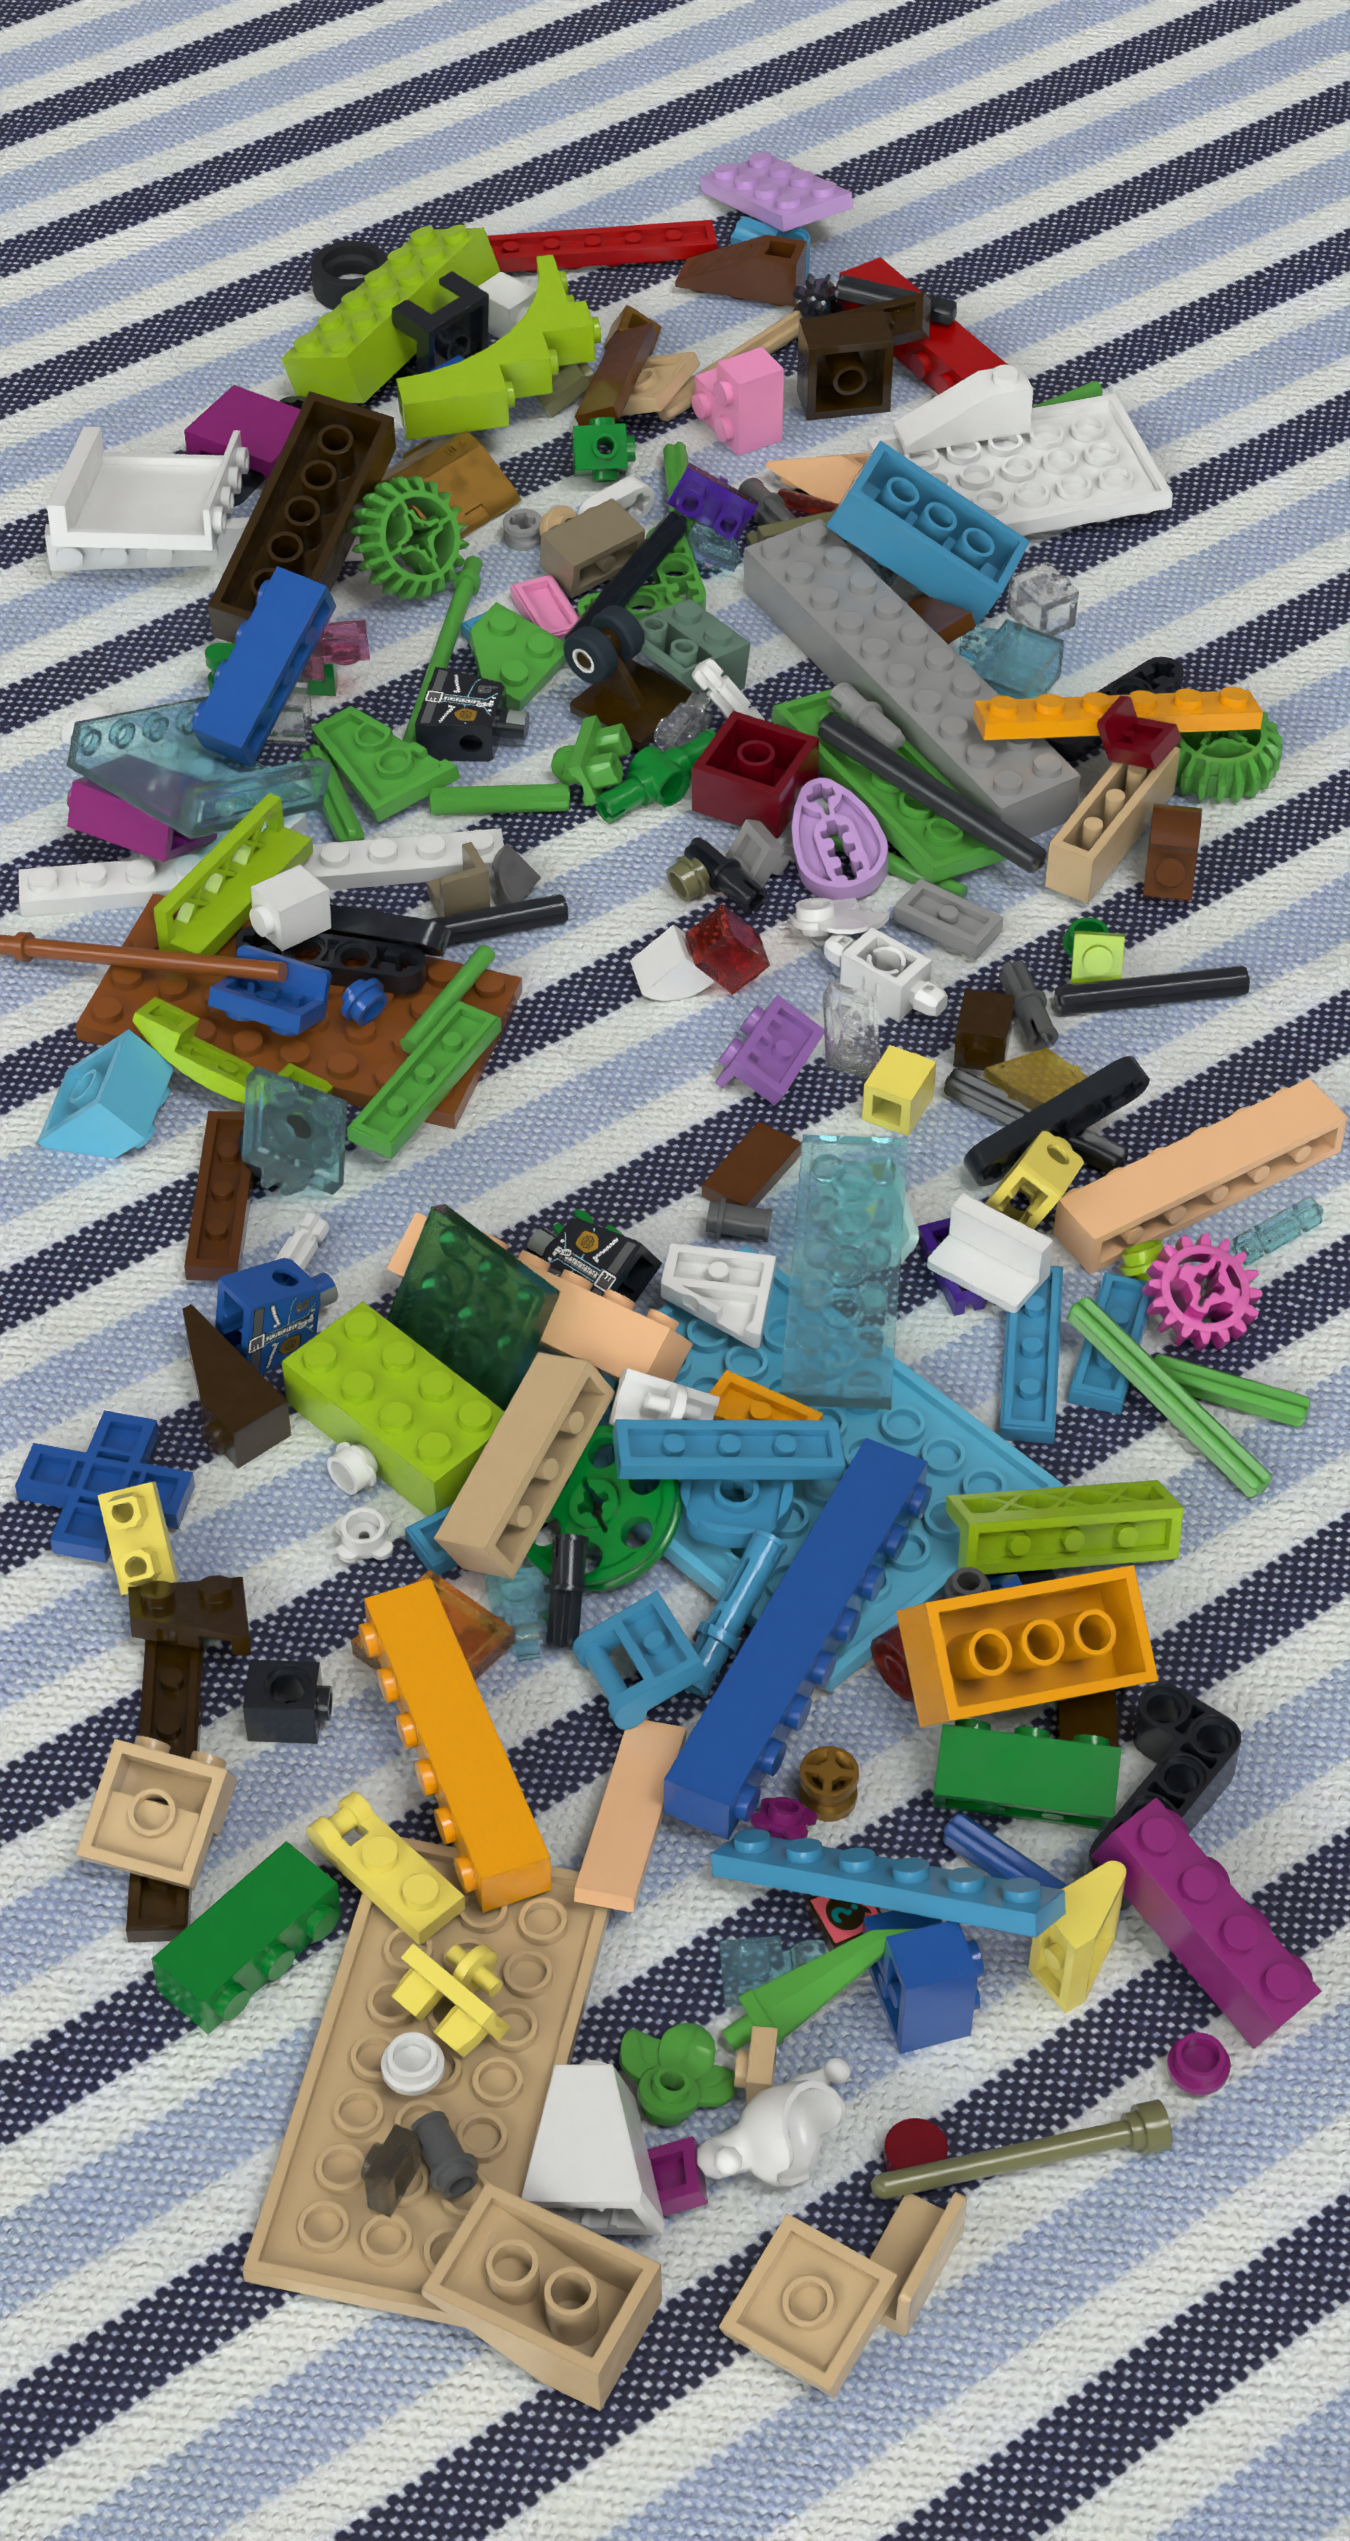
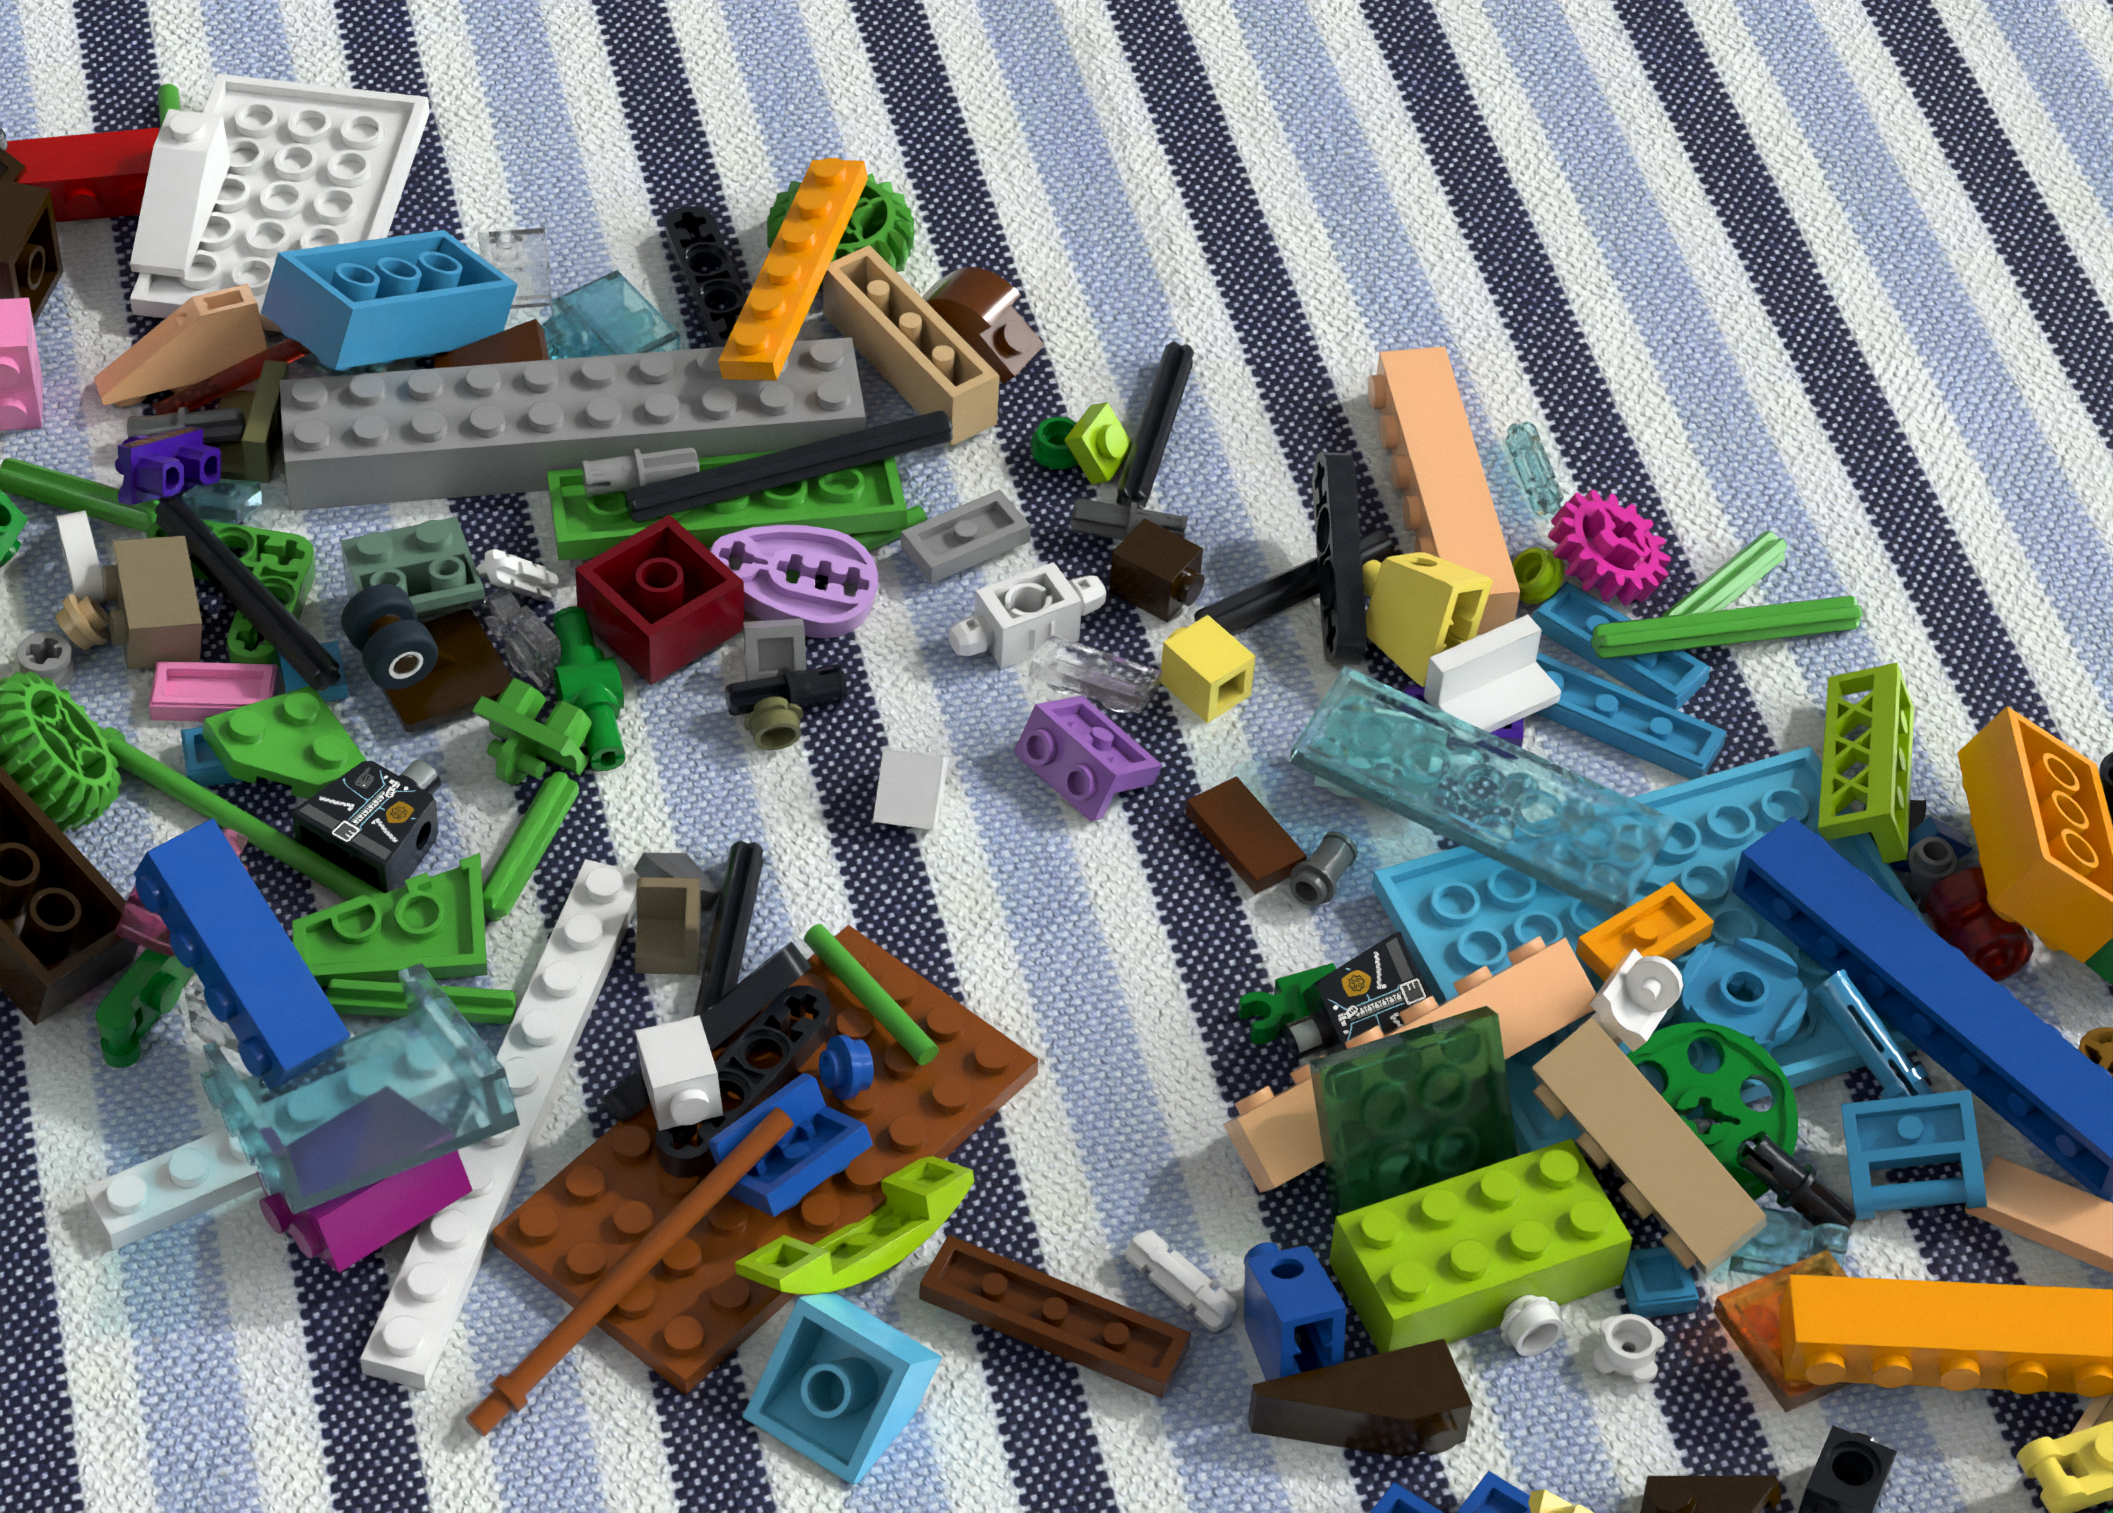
camera: 70 degrees left, 0 degrees up
(218, 912) = (576, 1140): lime fence -> none
(292, 1134) = (1025, 1209): clear light blue piece -> none
(424, 1079) = (990, 1059): bright green tile -> none
(721, 1288) = (1453, 903): white wing -> none
(727, 949) = (931, 723): clear red brick -> none
(728, 1449) = (1722, 964): dark azure plate -> none
(837, 916) = (908, 629): white plate -> none
(1034, 1077) = (1252, 555): clear yellow piece -> none
(1135, 739) = (861, 261): dark red bracket -> none

